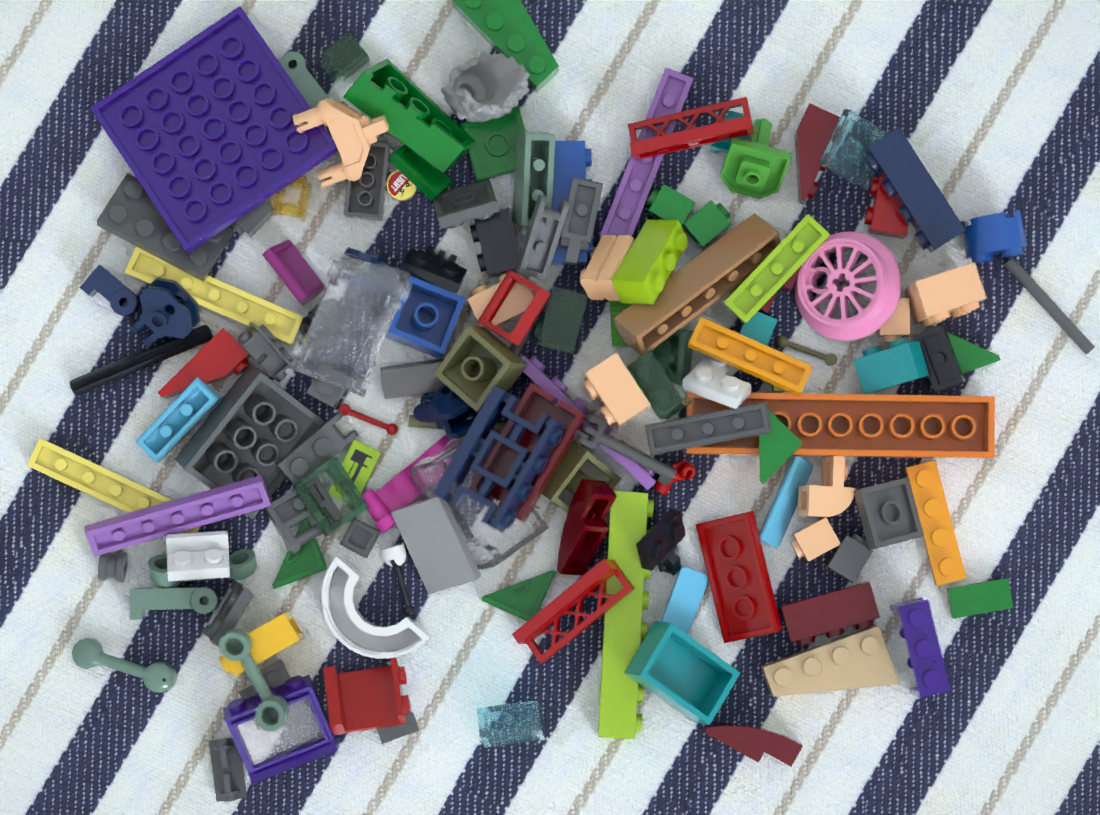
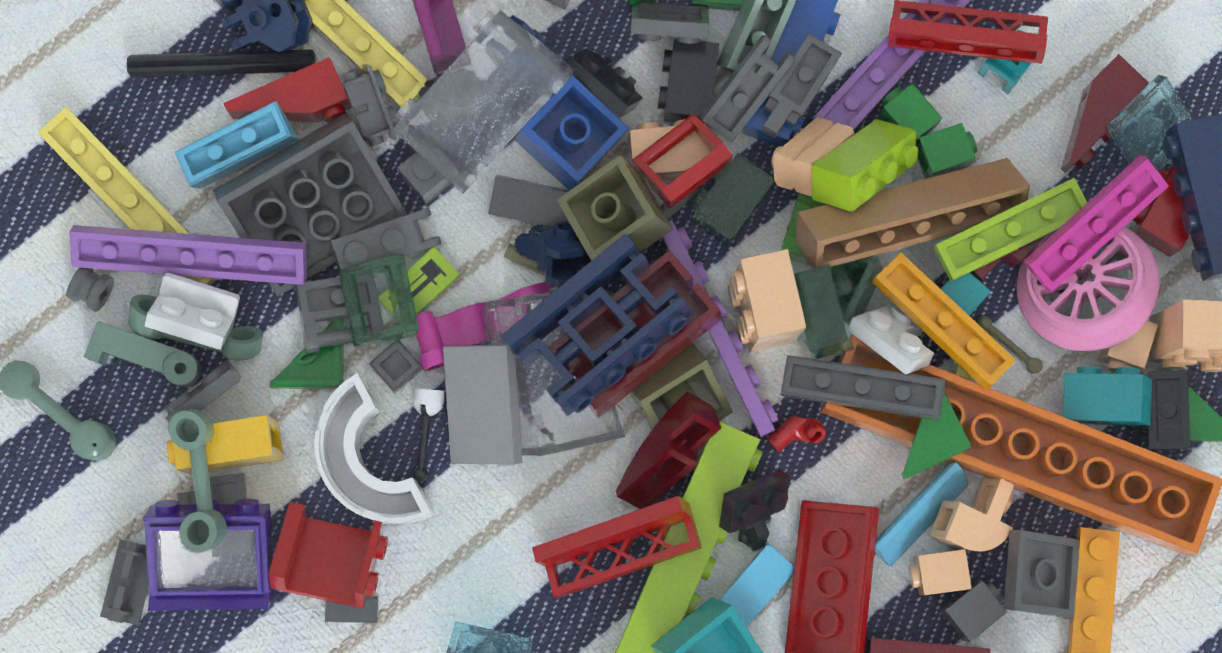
camera: 15 degrees right, 5 degrees down
(391, 428) = (437, 210): red hinge -> none
(522, 598) = (562, 510): green tile -> none
(597, 435) = (725, 347): dark grey hinge -> none
(754, 166) = (1026, 102): bright green piece -> none
(835, 243) = (1096, 223): none -> dark pink plate

